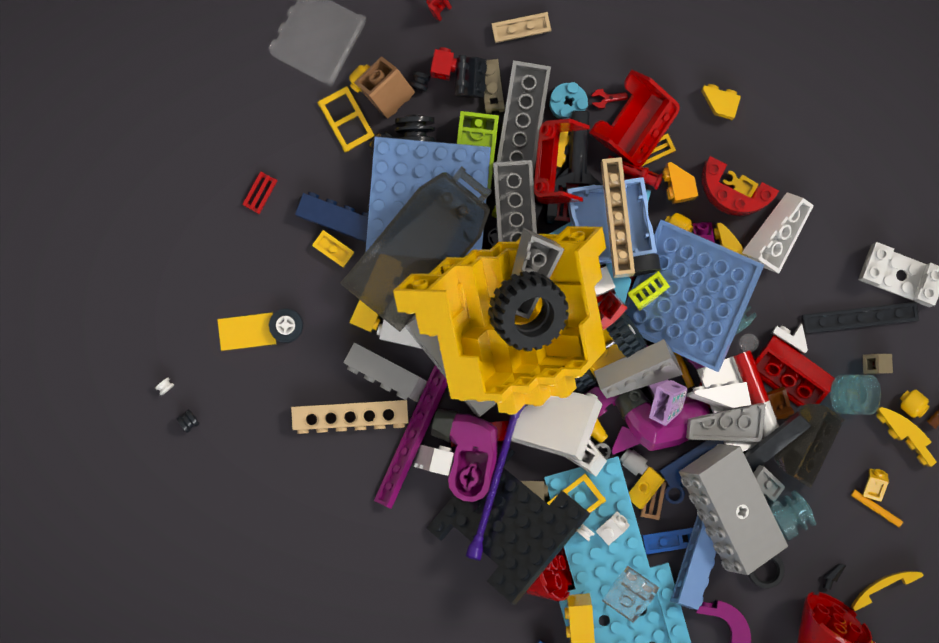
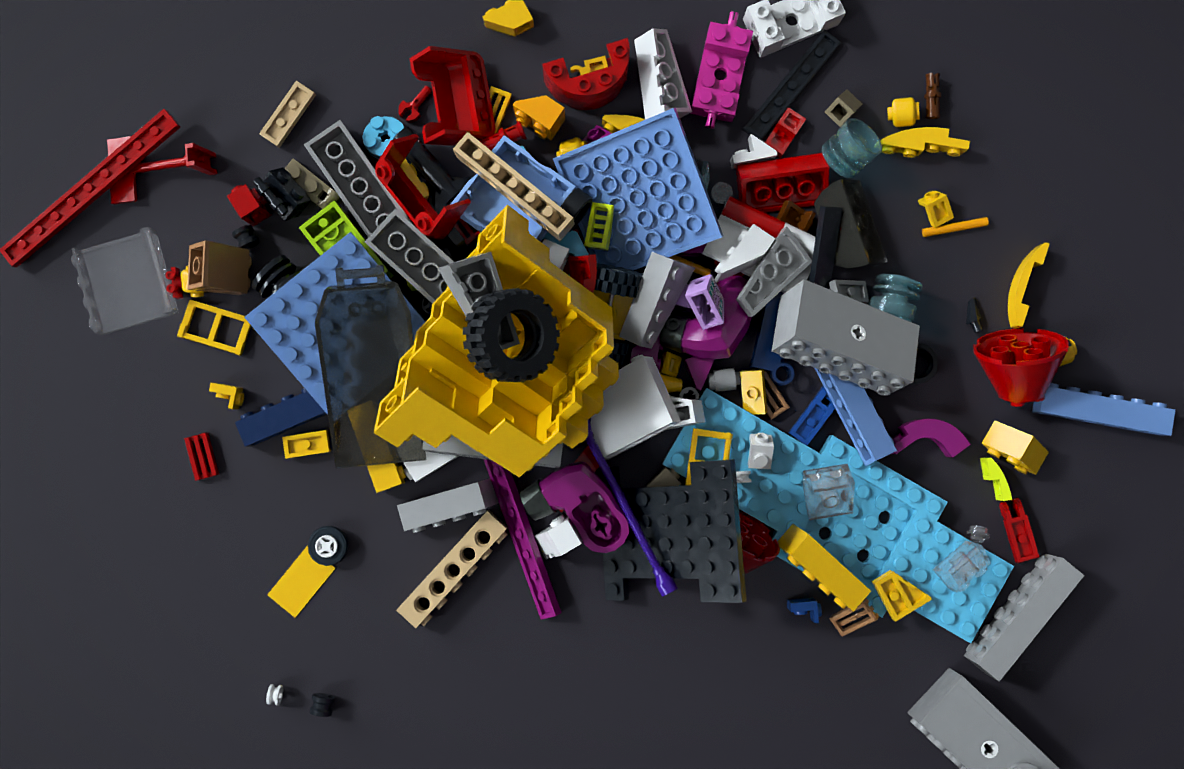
camera: 45 degrees left, 0 degrees up
(314, 166) = (226, 391): none -> yellow bracket
(349, 69) = (175, 287): none -> red piece
(609, 419) = (670, 364): none -> yellow slope
(826, 342) = (785, 131): none -> red slope
(840, 255) = (725, 51): none -> dark pink brick

